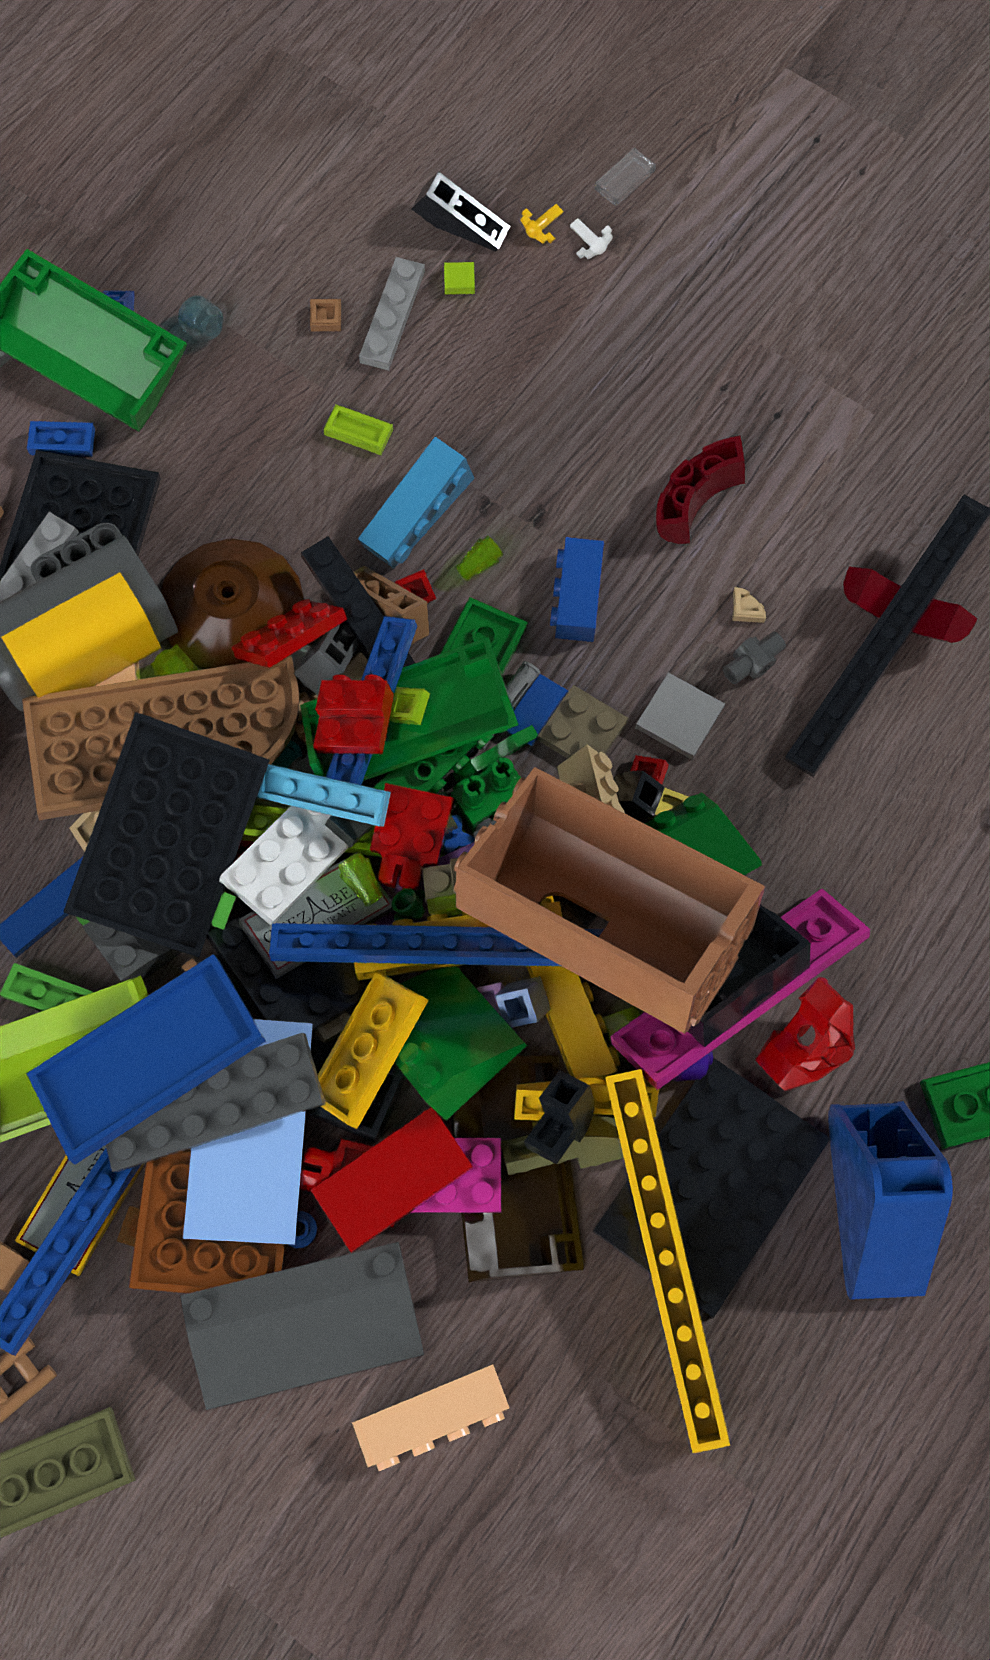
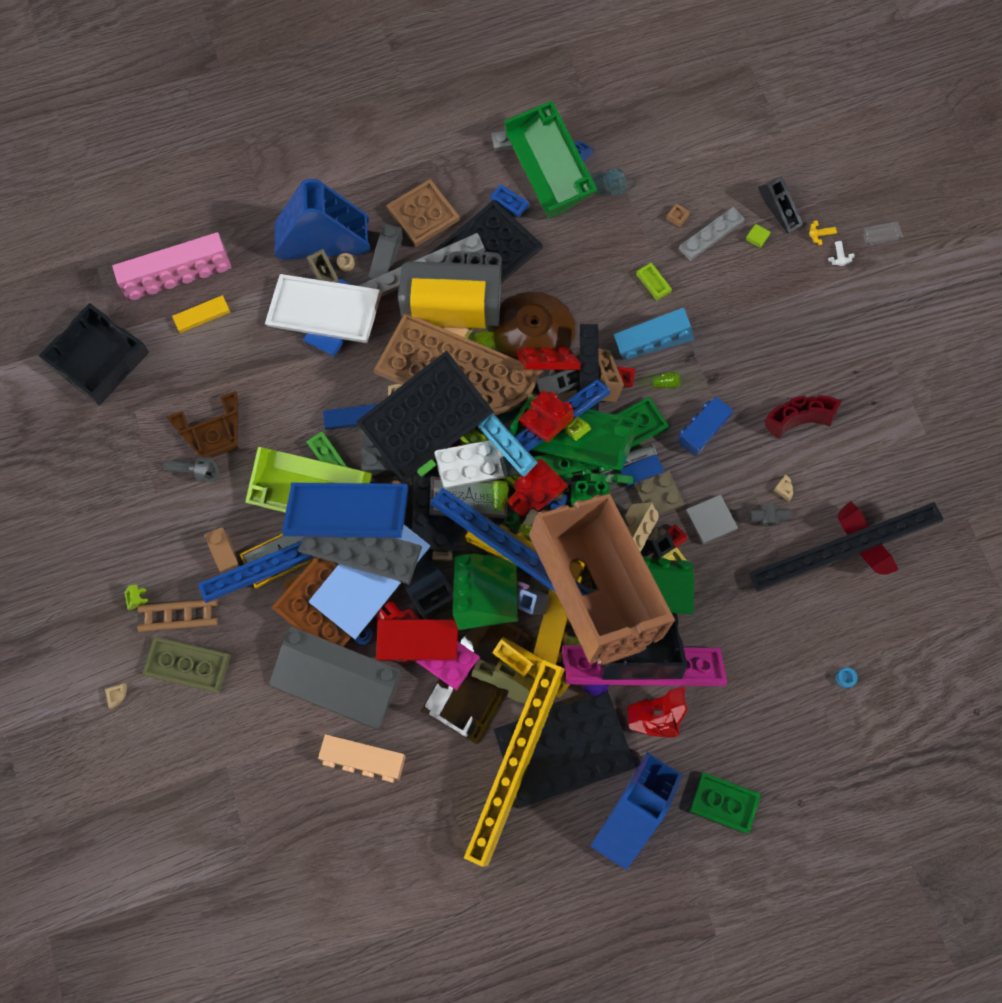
camera: 40 degrees right, 0 degrees up
(368, 1047) = (446, 573): yellow tile -> none
(566, 1118) = (514, 666): black brick -> none

